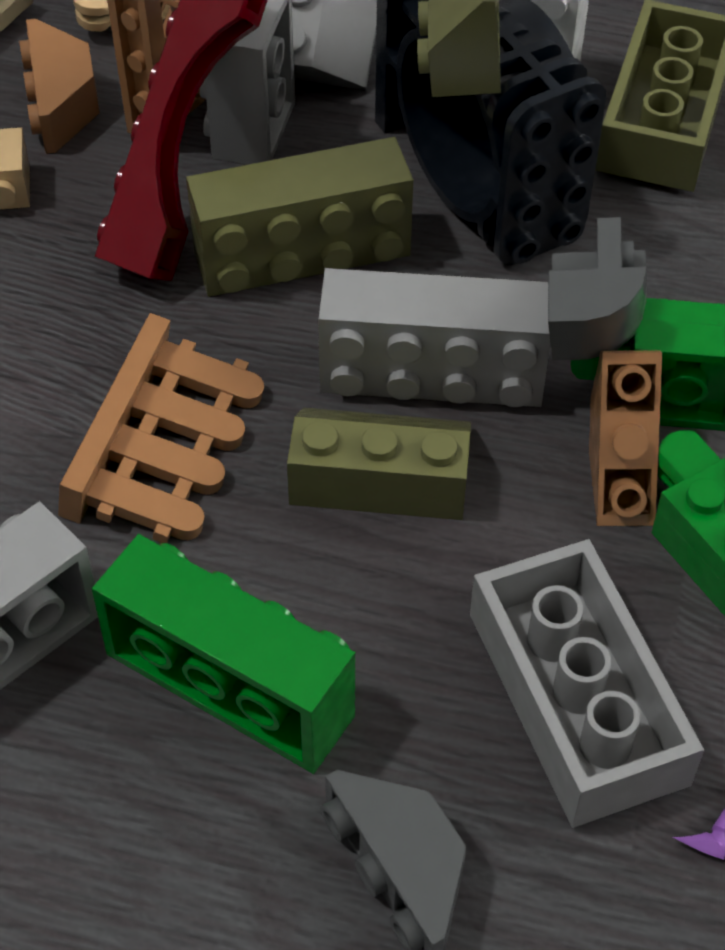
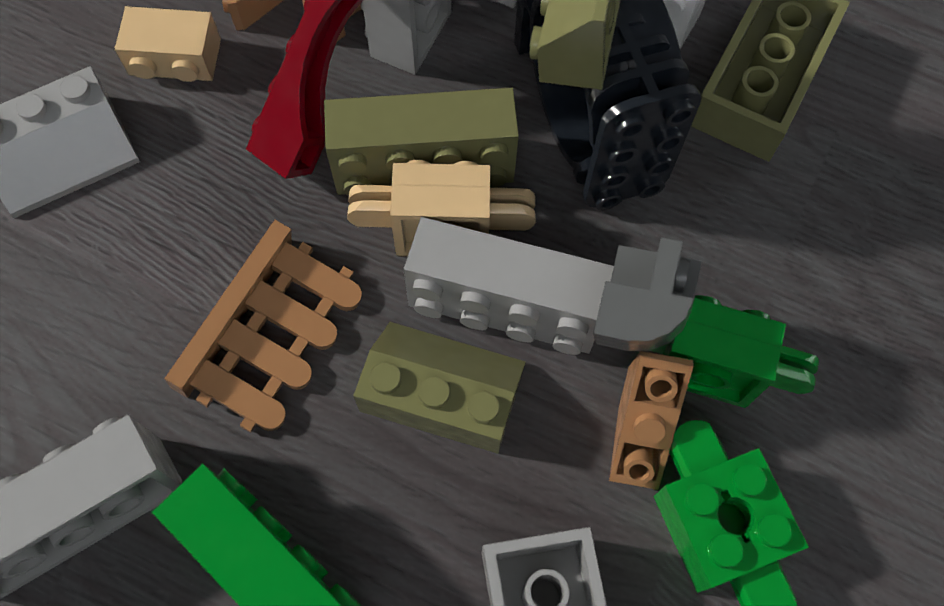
camera: 10 degrees right, 15 degrees up
(309, 247) = (443, 193): none -> tan brick

